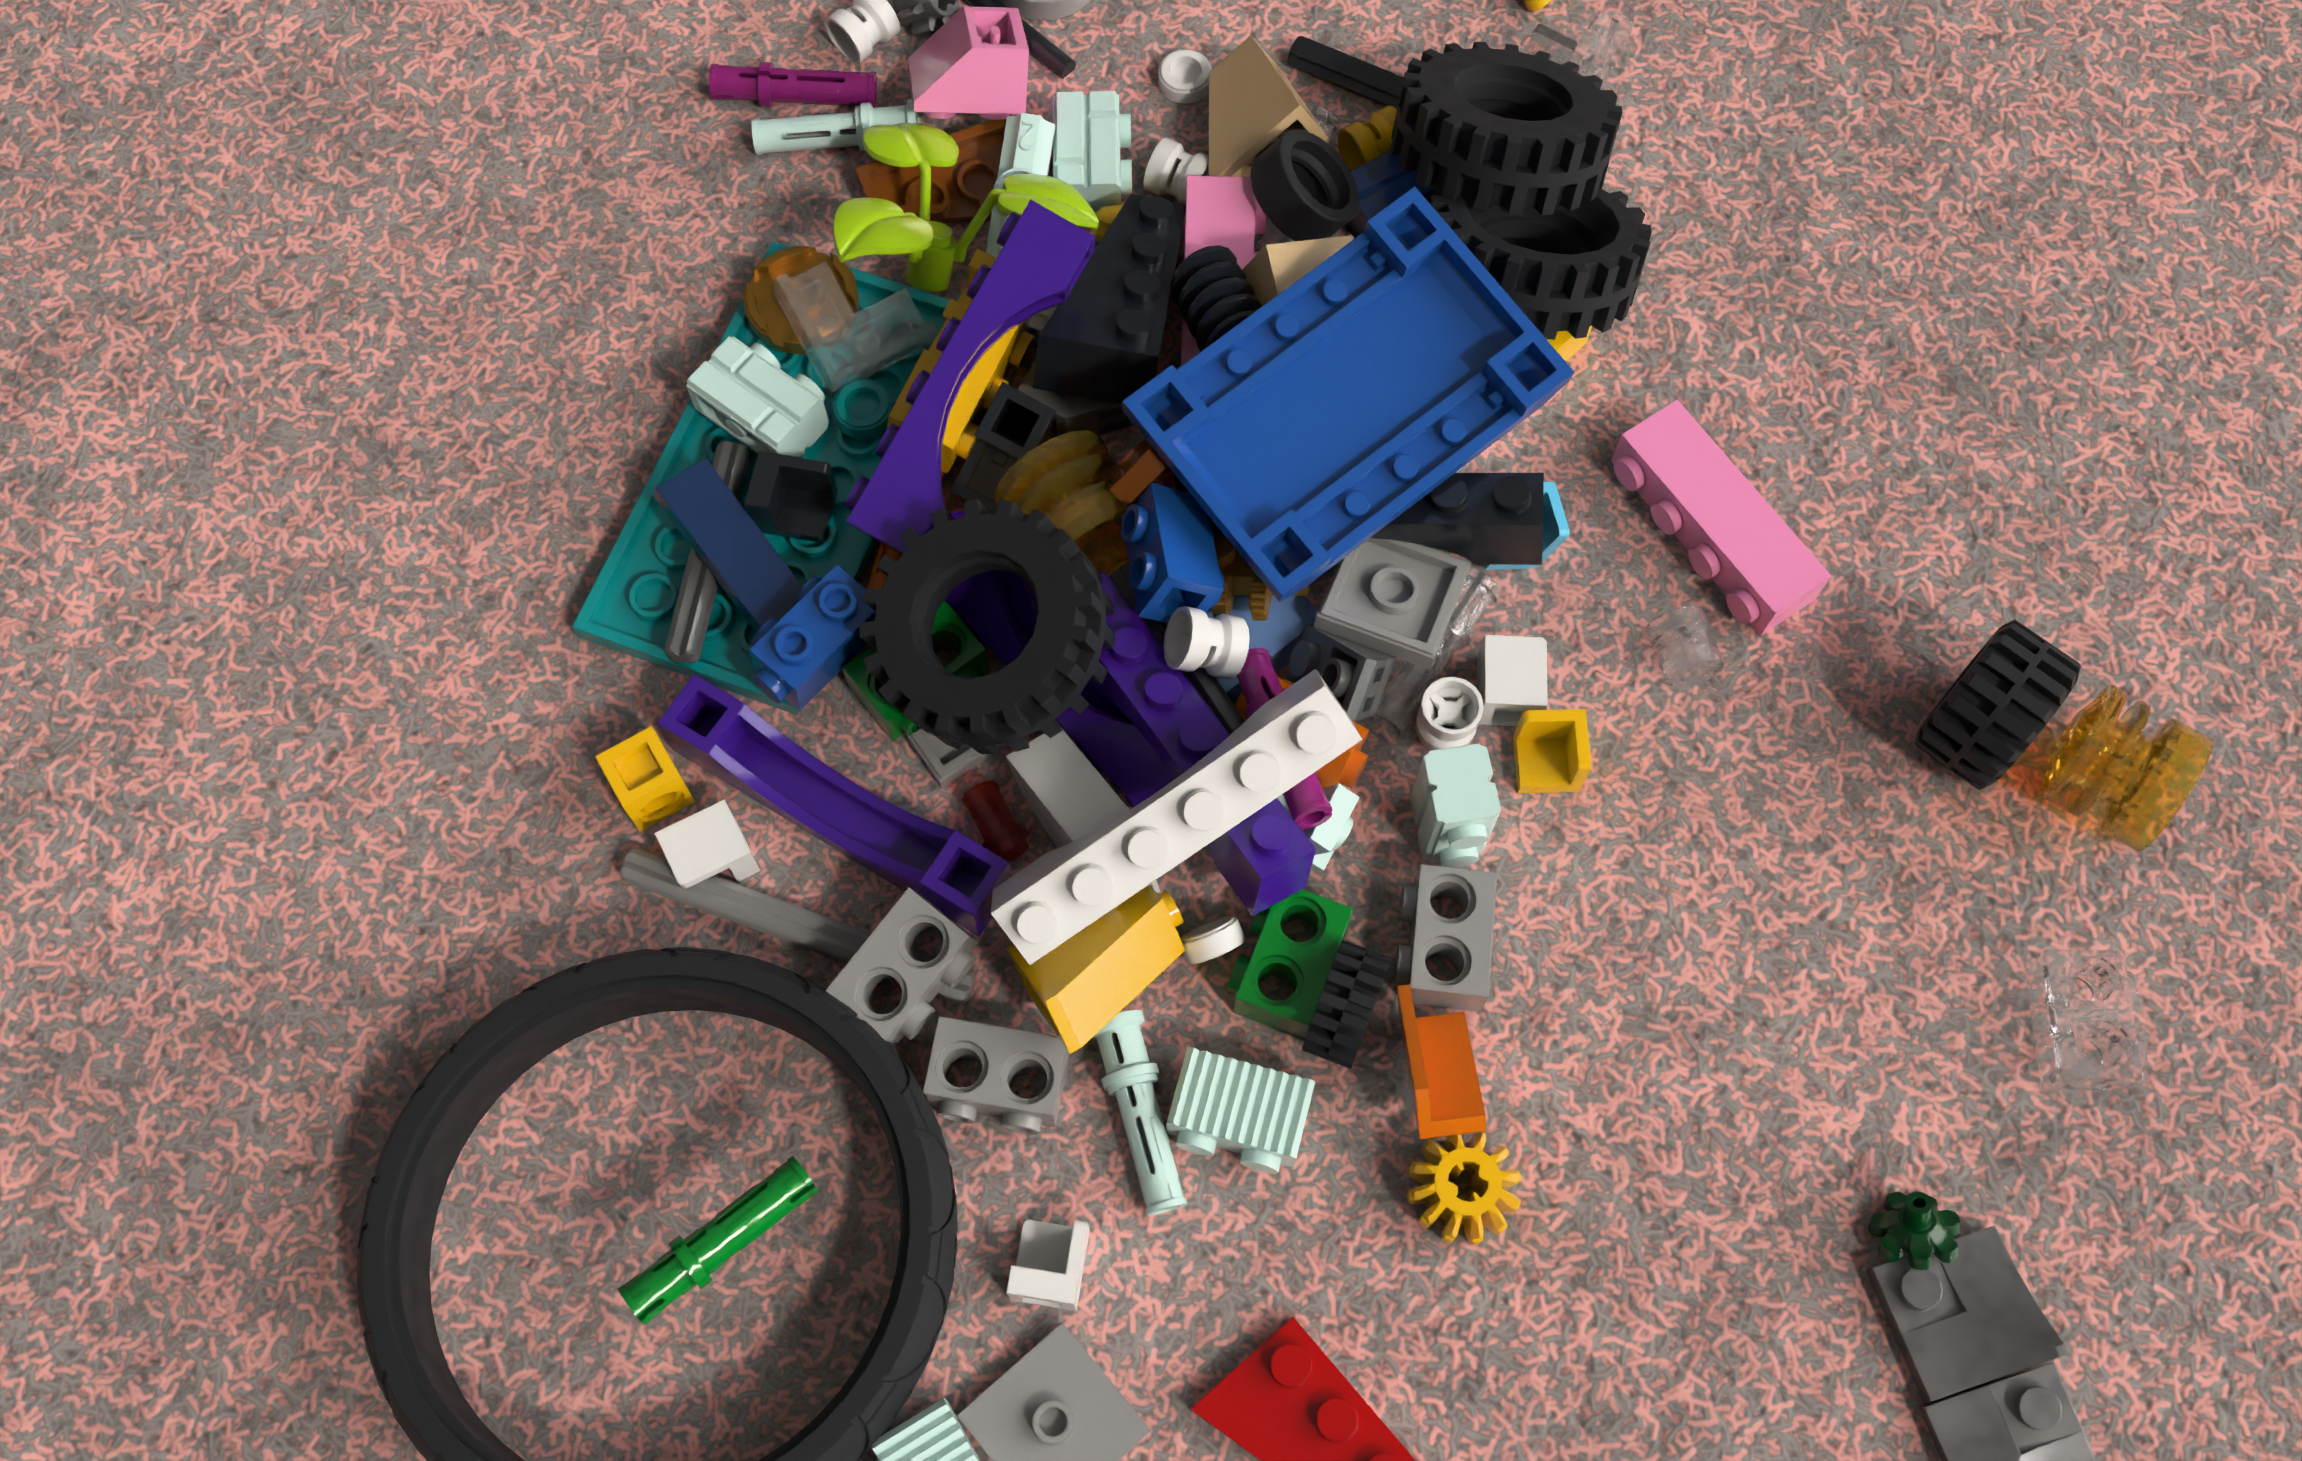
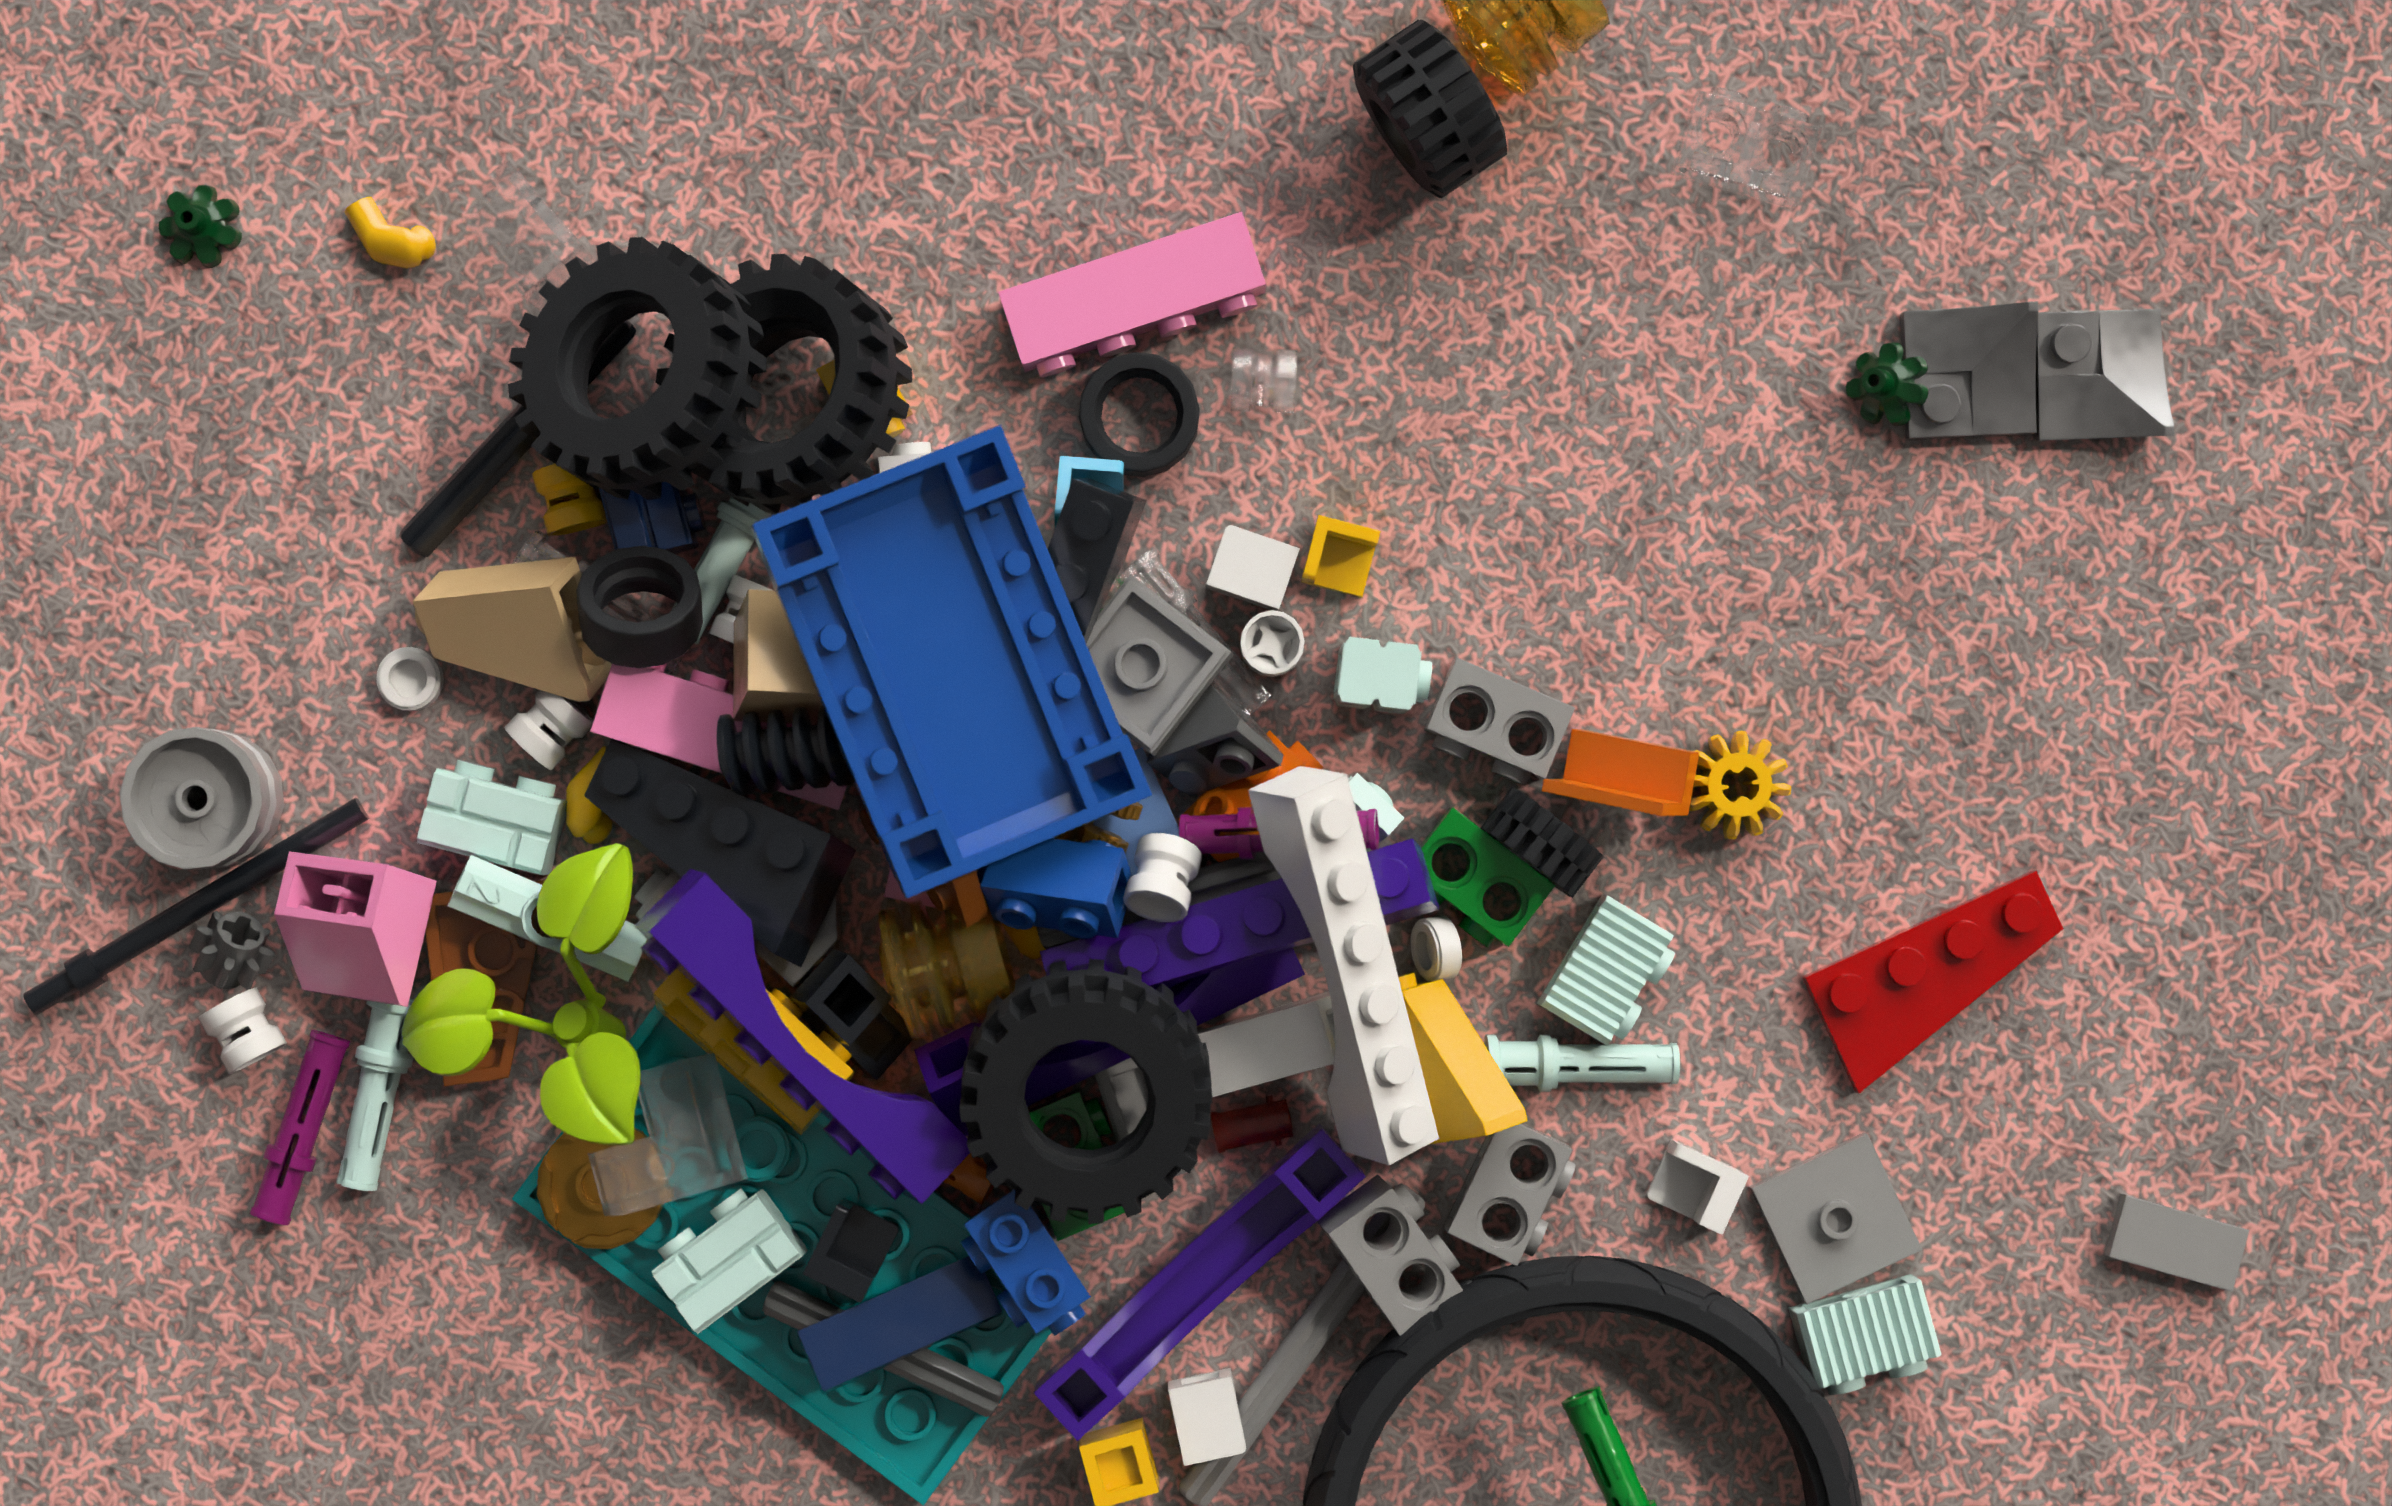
camera: 75 degrees left, 20 degrees up
(1637, 519) = (1149, 367): none -> black tyre

